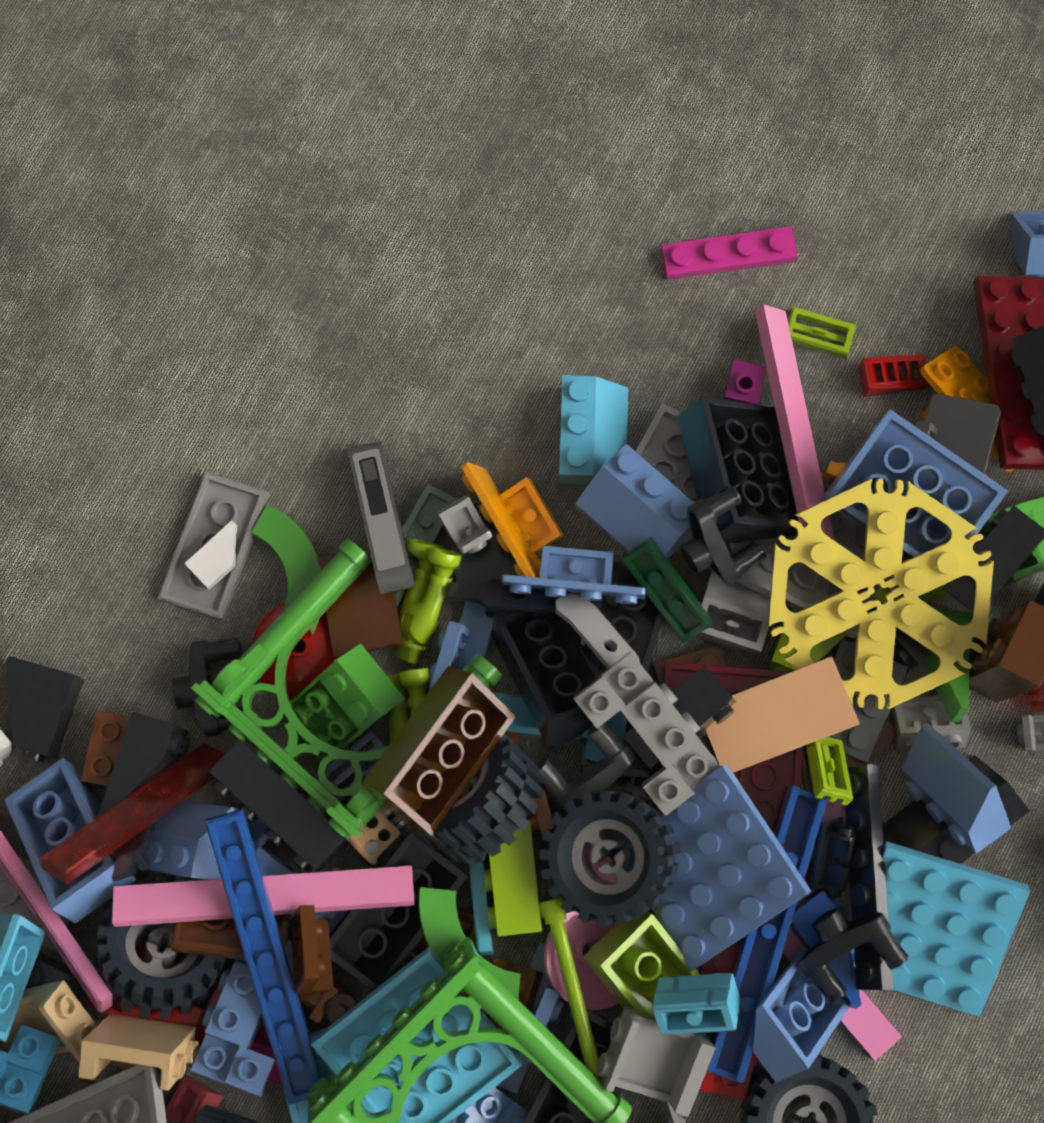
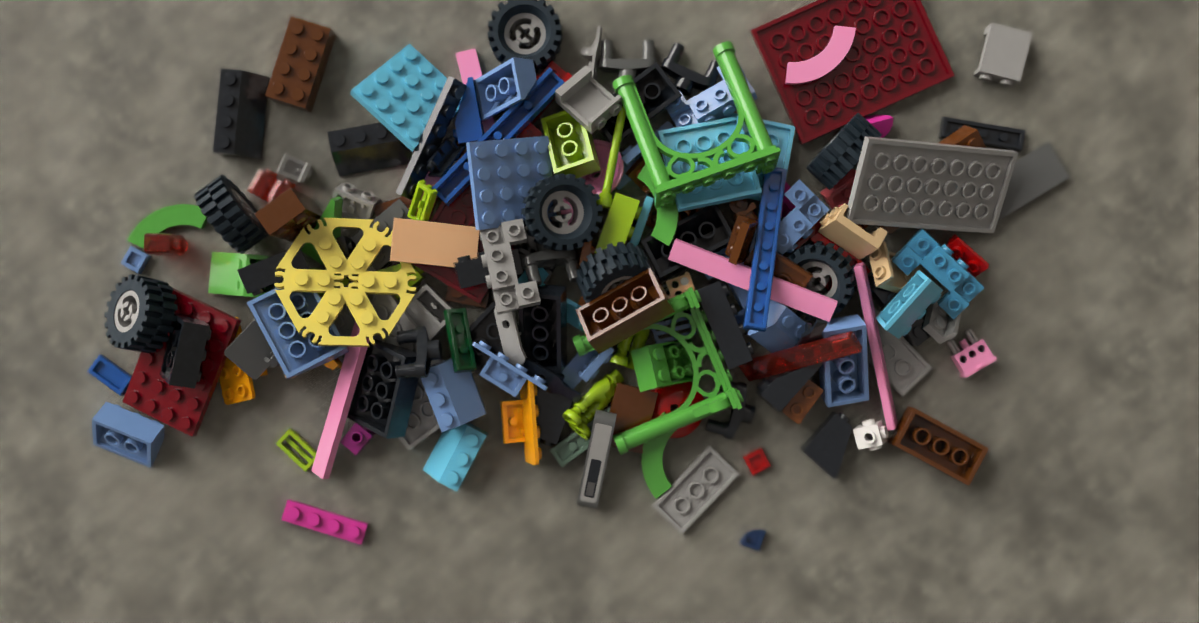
camera: 155 degrees left, 10 degrees up
(96, 514) = (753, 539): none -> dark blue tile
(140, 629) = (756, 461): none -> red tile
(215, 557) = (697, 481): white tile -> none
(464, 525) = (552, 430): light grey bracket -> none
(697, 1003) = (553, 116): medium azure brick -> none
(841, 936) = (461, 114): black connector -> none
(872, 387) = (284, 411): red slope -> none
(954, 790) = (362, 160): medium blue slope -> none

